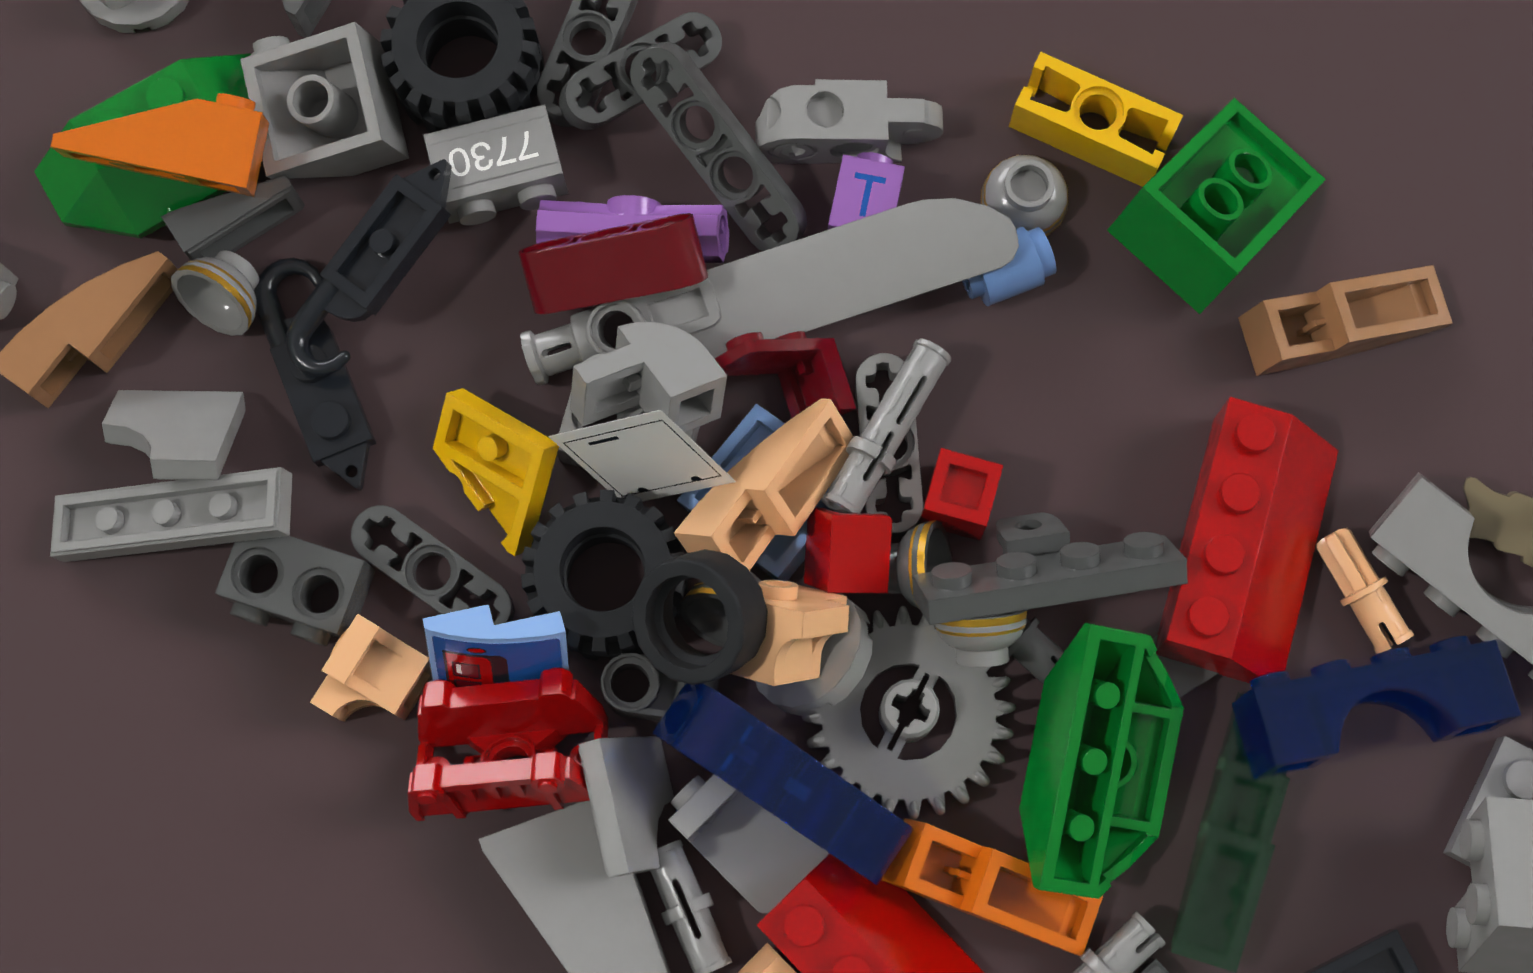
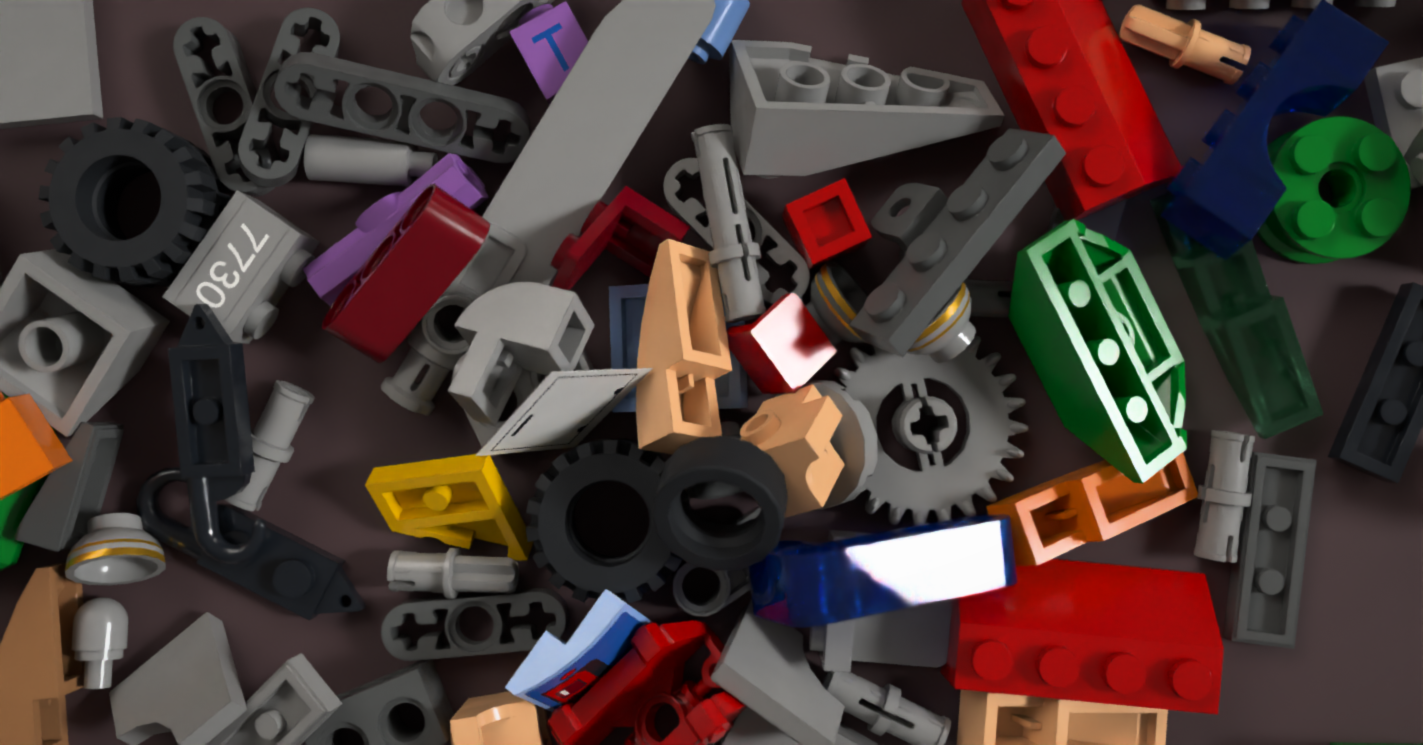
camera: 40 degrees left, 10 degrees up
(148, 344) = (99, 638): none -> light grey cylinder
(404, 307) = (272, 440): none -> light grey pin
(450, 517) = (451, 573): none -> light grey axle
(655, 160) = (364, 160): none -> light grey cylinder
(1027, 407) = (822, 115): none -> light grey wedge
(1426, 794) = (1366, 185): none -> green wheel

